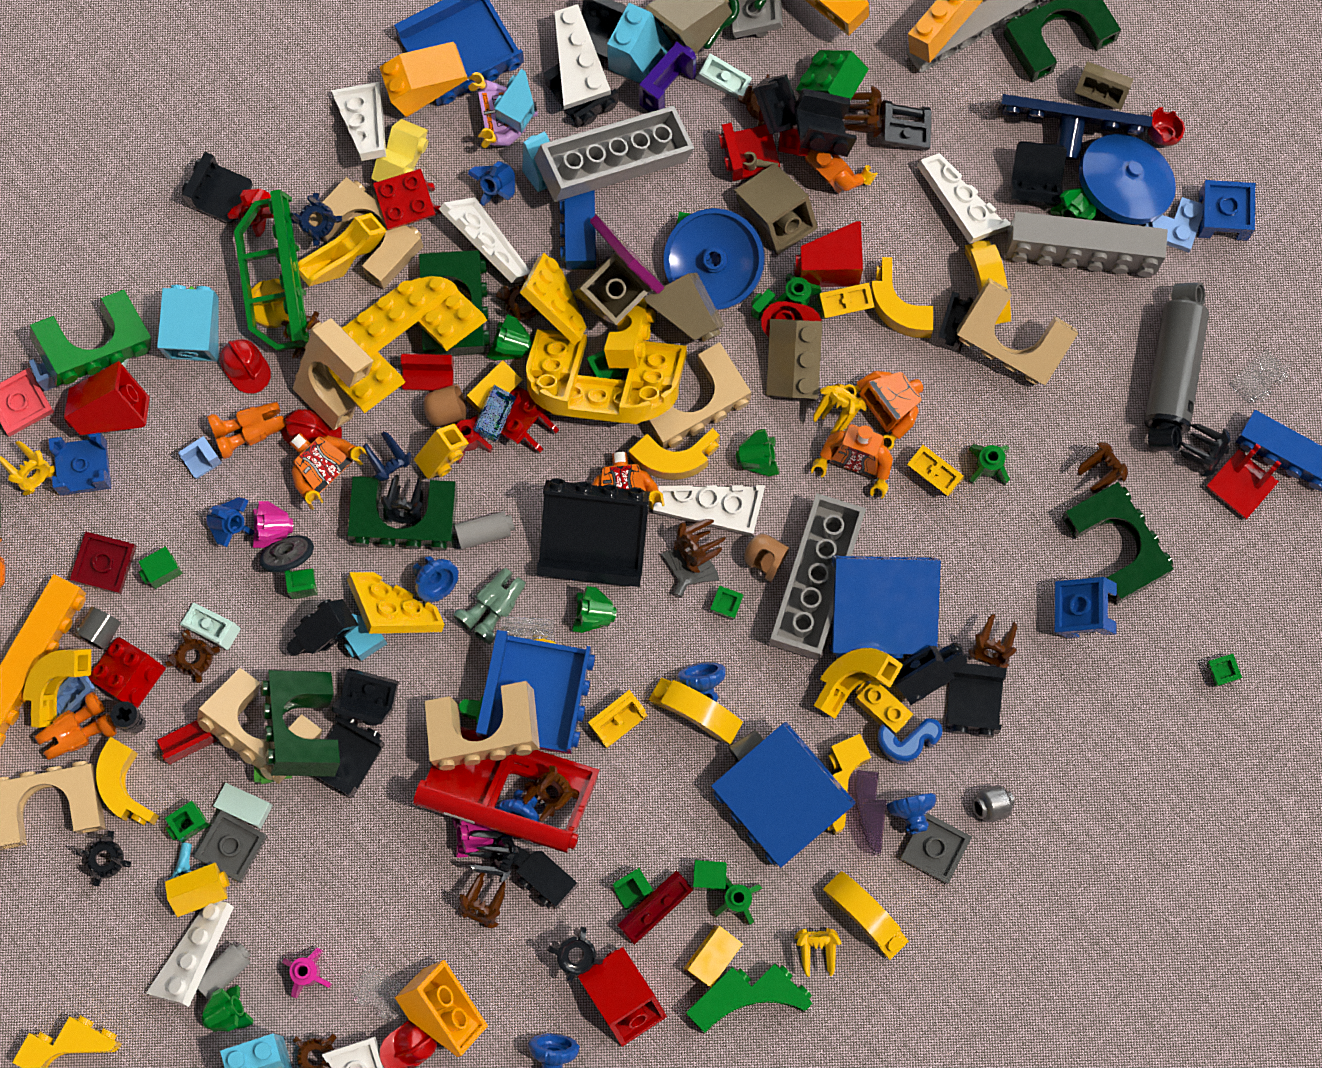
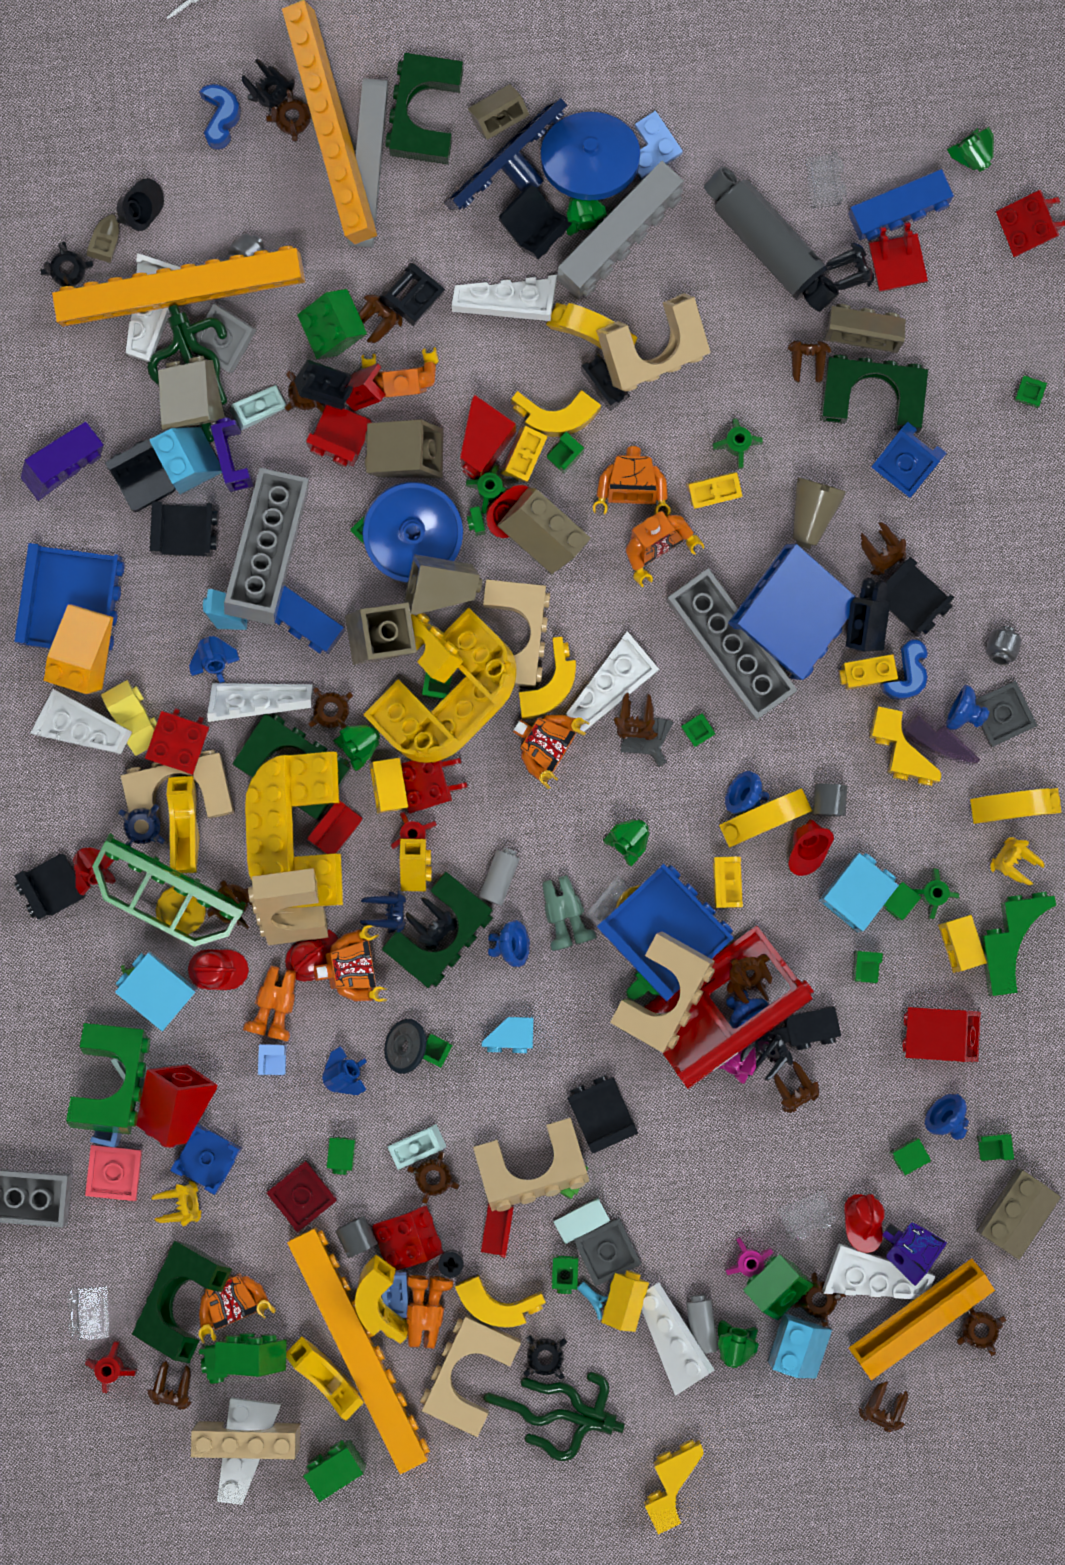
camera: 55 degrees left, 10 degrees up
(77, 937) = (592, 1418): none -> dark green plant
(270, 524) = (371, 1042): dark pink brick -> none
(288, 752) = (575, 1158): dark green arch -> none
(298, 1009) = (777, 1287): none -> green brick
(322, 629) = (491, 1061): black hinge -> none
(366, 697) = (570, 1066): black bracket -> none
(390, 608) = (511, 995): yellow plate -> none
(442, 1008) = (855, 1177): light orange slope -> none
(445, 406) = (375, 834): medium nougat helmet -> none
(494, 413) = (413, 800): clear blue tile -> none
(495, 131) = (156, 609): torso -> none
(495, 1045) = (910, 1156): none -> green panel
(516, 105) = (164, 591): medium azure slope -> none
(551, 296) = (351, 685): yellow plate -> none
(578, 941) = (881, 1056): black piece -> none
(579, 64) = (166, 517): white wing -> none
(593, 532) = (571, 794): black panel -> none
(626, 254) = (363, 600): magenta tile -> none
(655, 907) = (894, 960): dark red tile -> none
(691, 833) = (859, 892): none -> medium azure slope
(696, 765) = (810, 848): none -> red piece
(756, 162) = (355, 435): dark tan hand -> none
(758, 454) = (598, 617): green brick -> none
(765, 554) = (684, 671): medium nougat helmet -> none
(782, 795) = (884, 800): blue panel -> none
(822, 124) = (370, 363): black panel -> none
(838, 395) = (597, 523): yellow piece -> none
(852, 670) = (825, 674): yellow arch -> none
(873, 335) = (565, 453): none -> green panel
(982, 562) = (814, 510): none -> dark tan cone
(1165, 495) = (865, 328): none -> dark tan slope
(1166, 128) = (571, 89): red hair -> none
(1227, 208) = (673, 96): blue panel -> none

